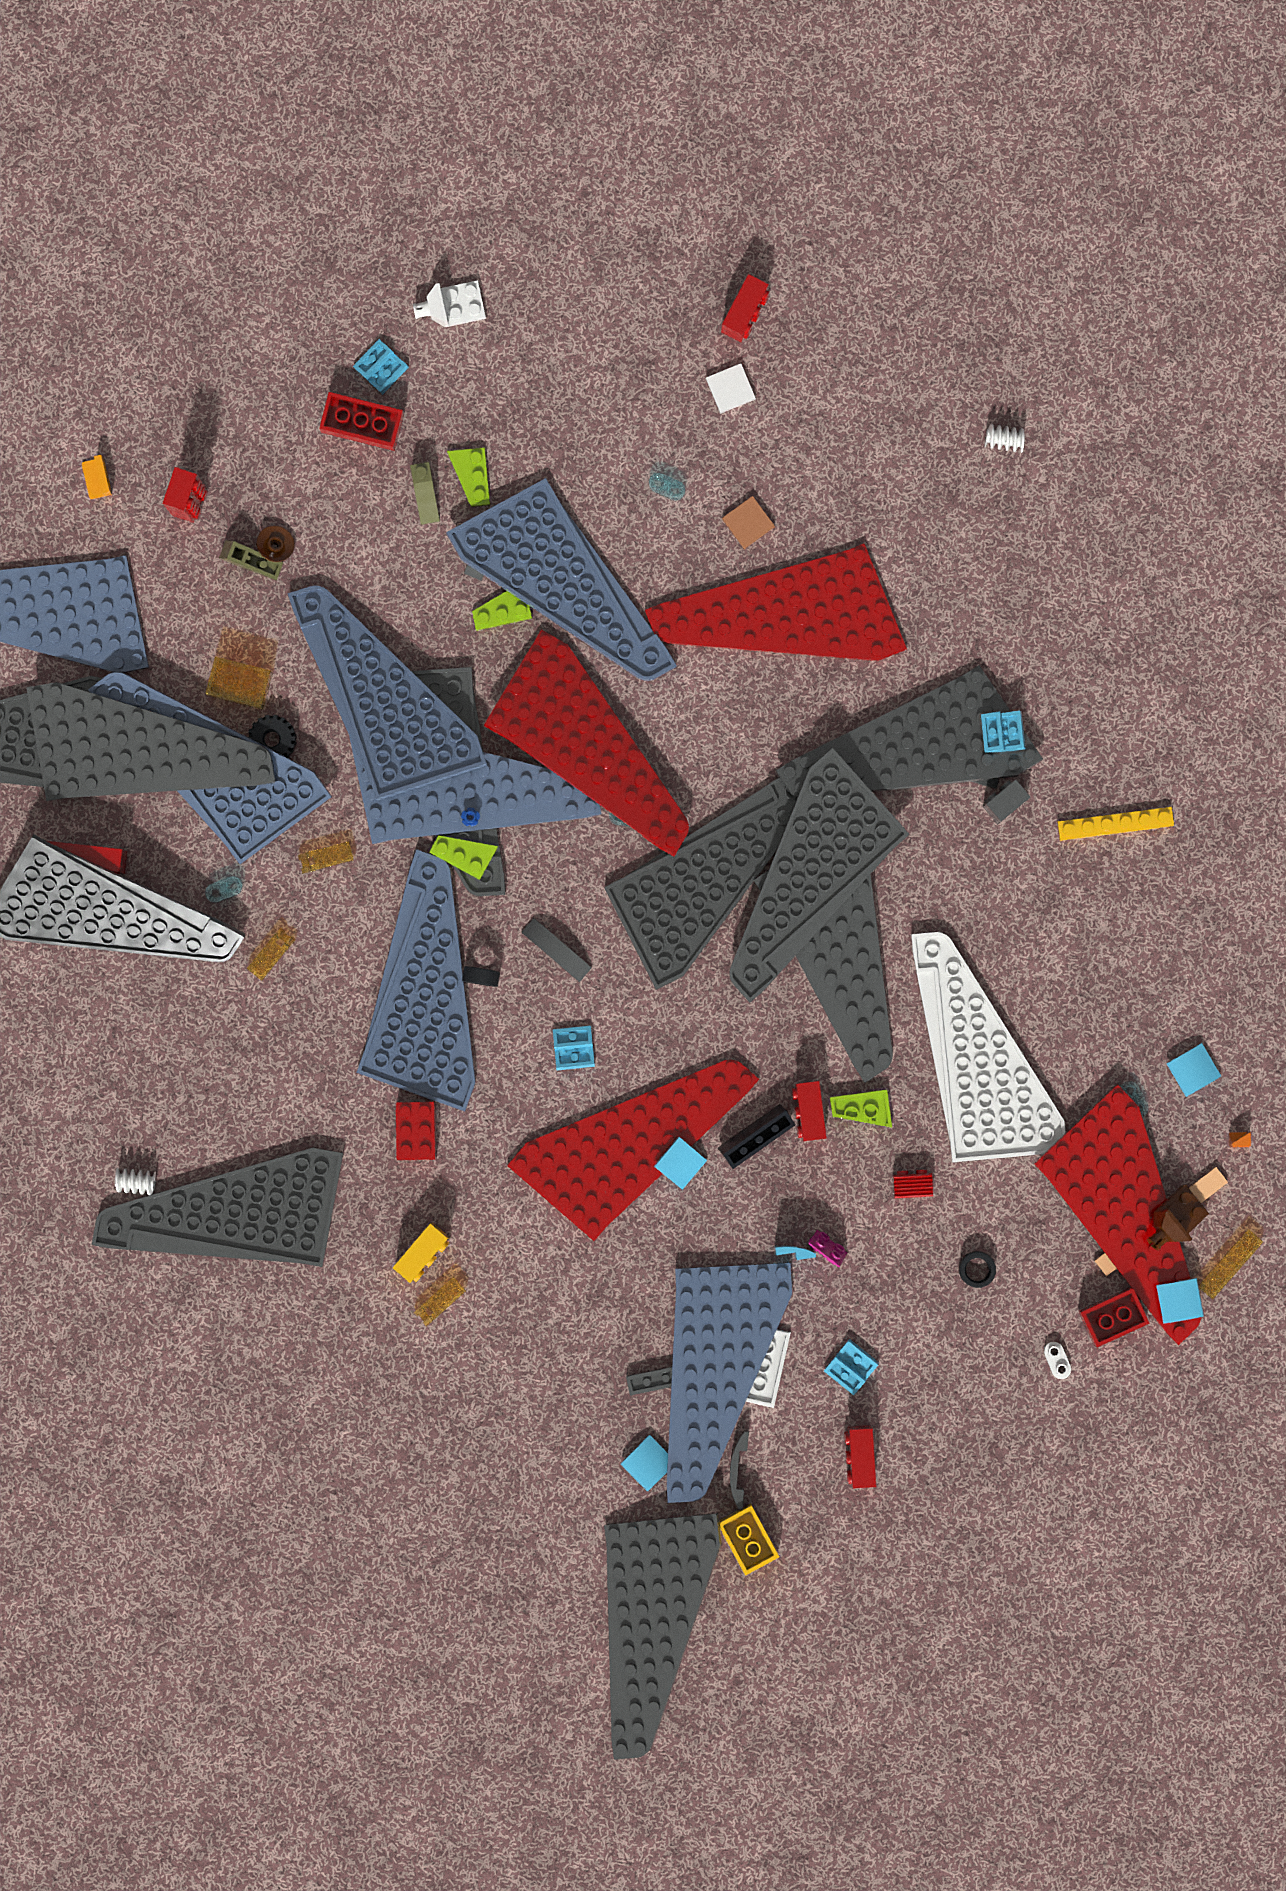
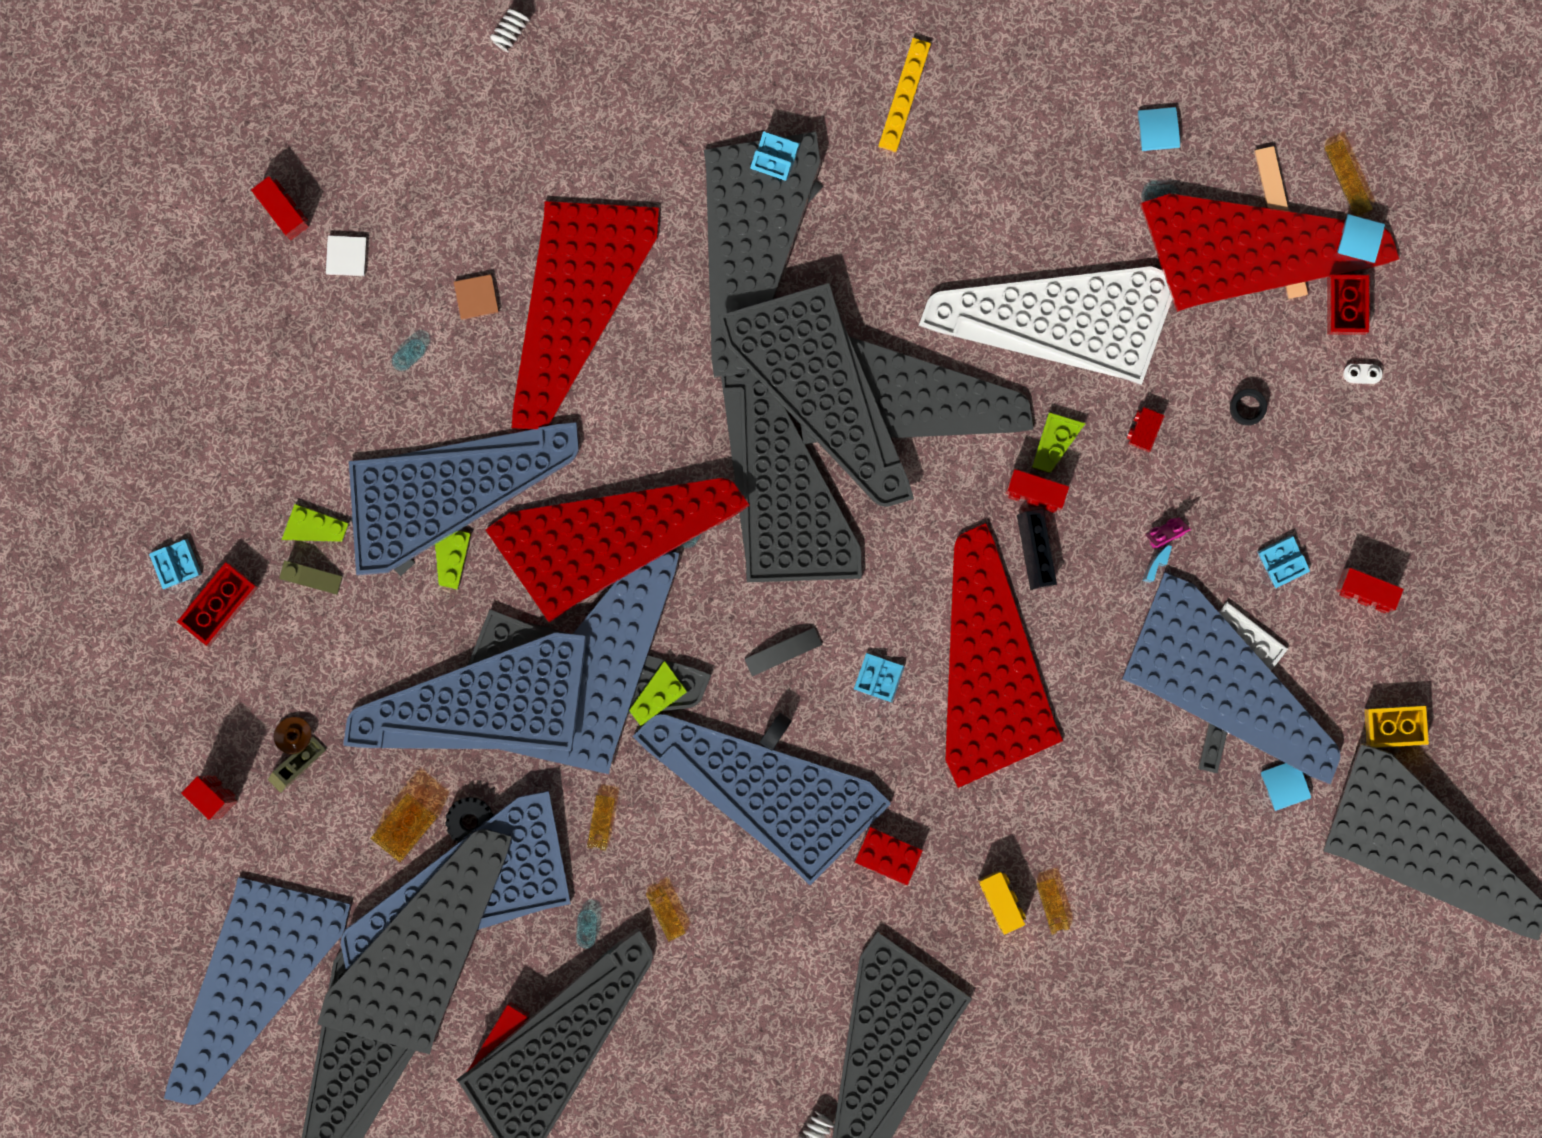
camera: 65 degrees left, 0 degrees up
(96, 477) = (154, 871): light orange panel -> none
(452, 304) = (149, 471): white plate -> none
(465, 816) = (627, 678): blue plate -> none
(680, 1163) = (1028, 629): medium azure slope -> none
(741, 1445) = (1308, 693): dark grey slope -> none
(1006, 802) = (839, 182): dark grey brick -> none
(1177, 1218) = (1286, 206): reddish brown plate -> none
(1240, 1139) = (1240, 117): orange slope -> none

